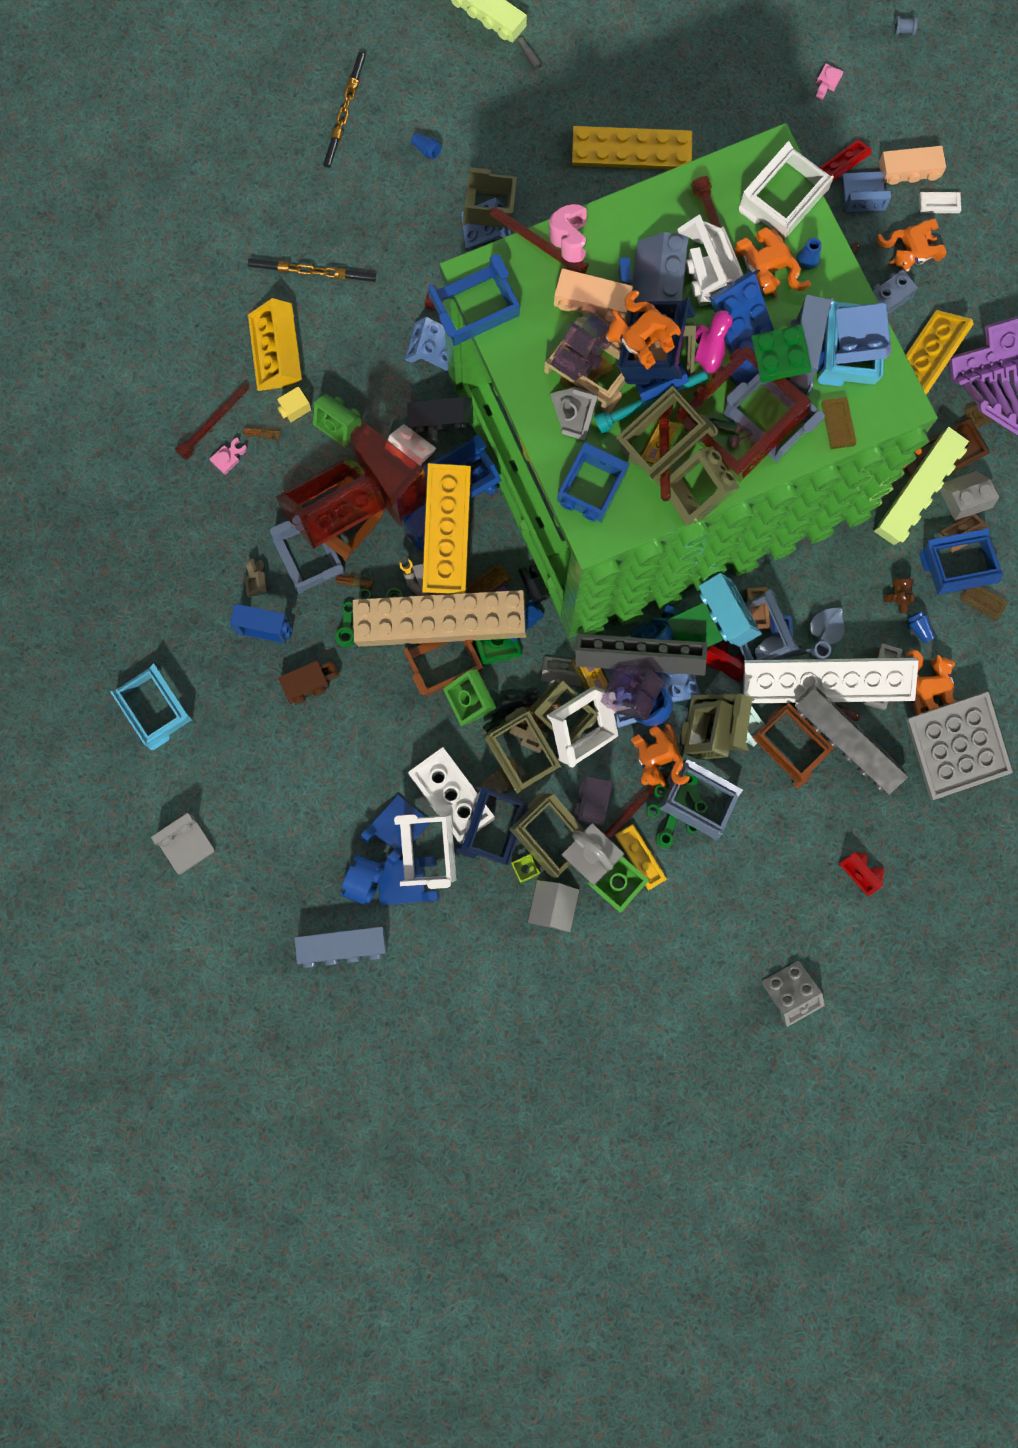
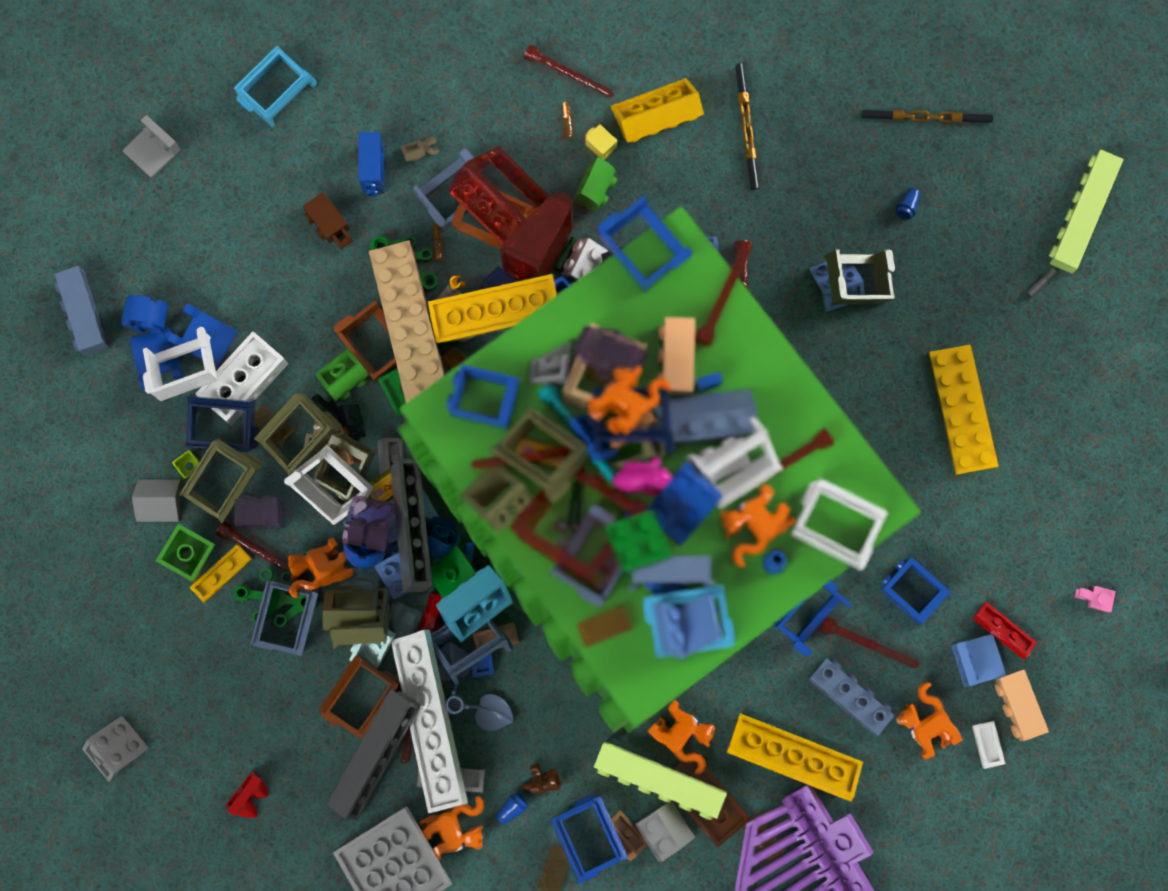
camera: 80 degrees right, 0 degrees up
(226, 458) = (534, 94): bright pink plate -> none
(565, 234) = (737, 308): bright pink animal -> none
(592, 853) = (206, 521): light grey tile -> none

